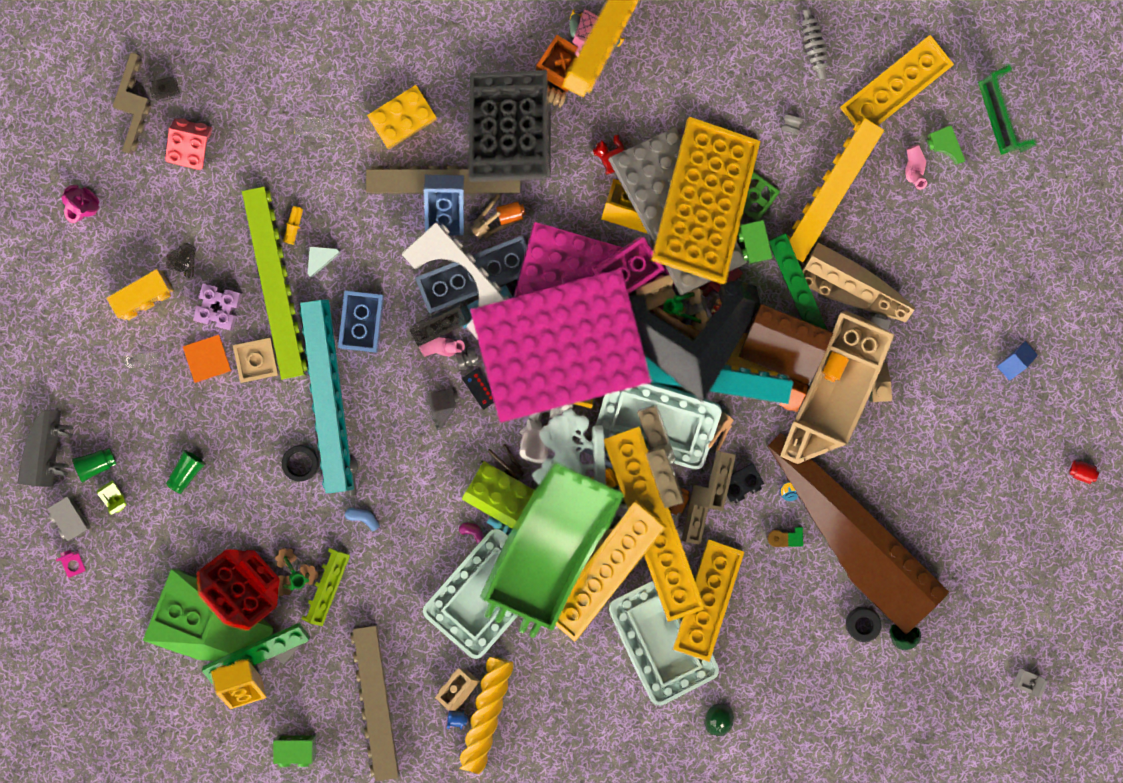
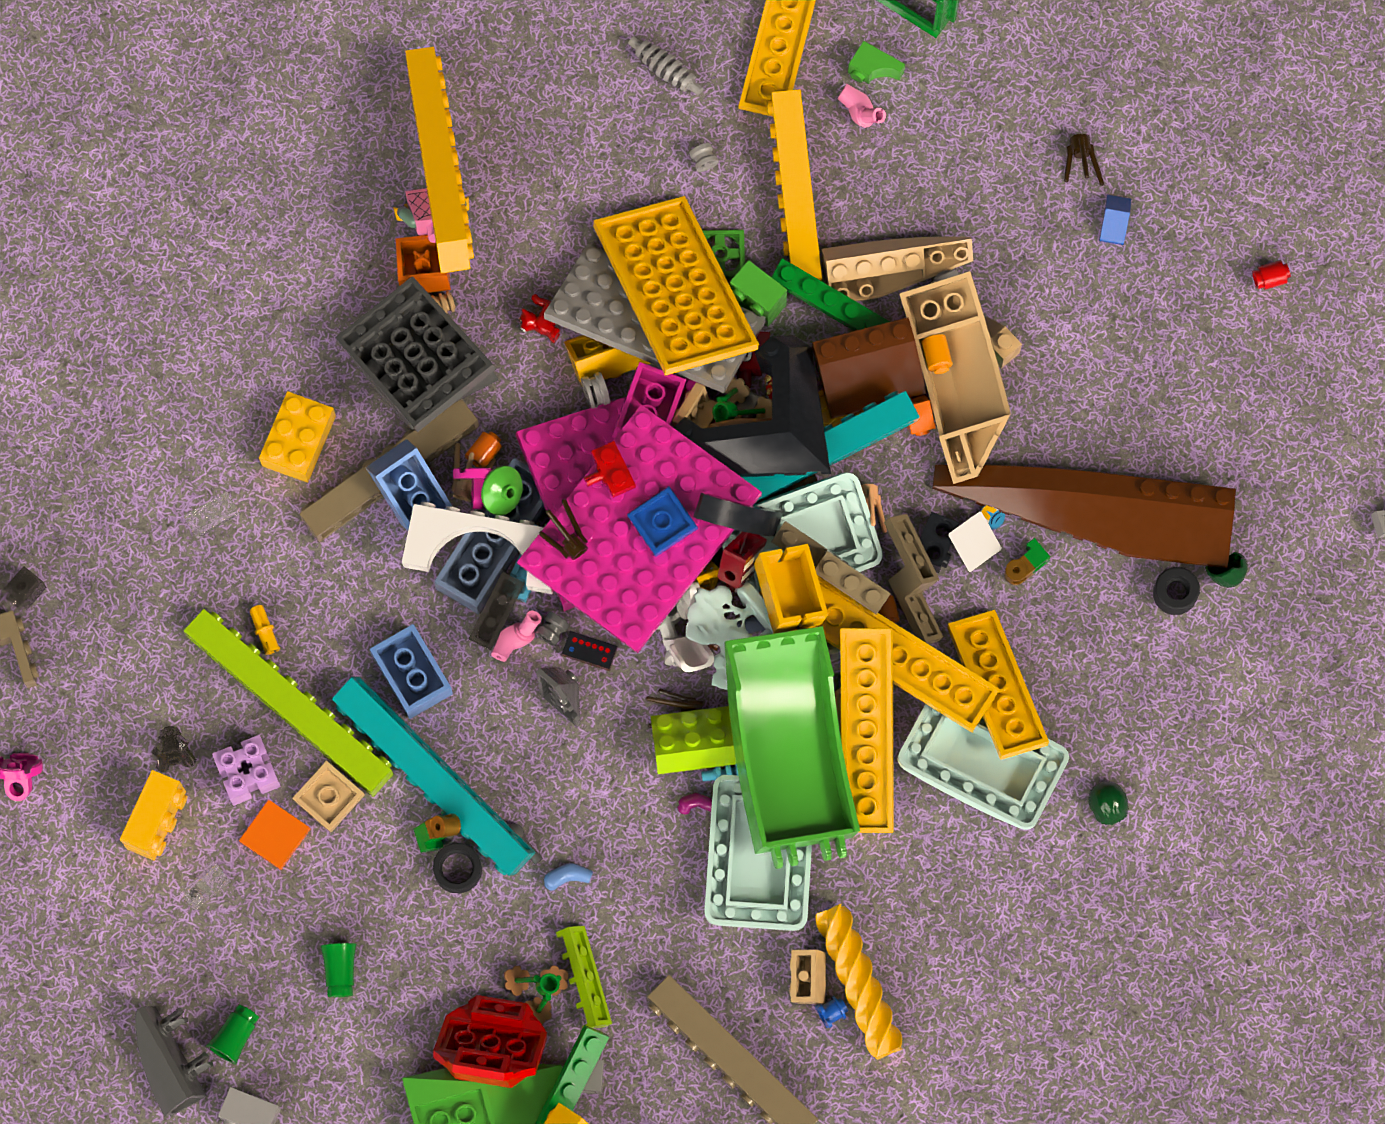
camera: 35 degrees left, 15 degrees down
(112, 497) = (280, 1055): lime bracket -> none
(187, 143) = (89, 629): coral bracket -> none
(303, 433) = (434, 830): none -> leg
(320, 258) = (318, 640): light aqua slope -> none
(489, 233) = (477, 476): none -> dark pink tile
(497, 254) = (501, 490): none -> bright green dish
(509, 328) = (573, 545): none -> dark brown plant
(569, 298) = (611, 470): none -> red plate
(575, 355) = (662, 521): none -> blue tile
(602, 414) = (736, 568): none -> dark red torso
(608, 230) = (598, 390): none -> light grey wheel
(623, 455) = (790, 588): none -> yellow piece
(624, 388) = (737, 515): none -> black slope
(765, 500) = (975, 541): none -> white sticker
(1033, 299) = (1081, 149): none -> dark brown plant

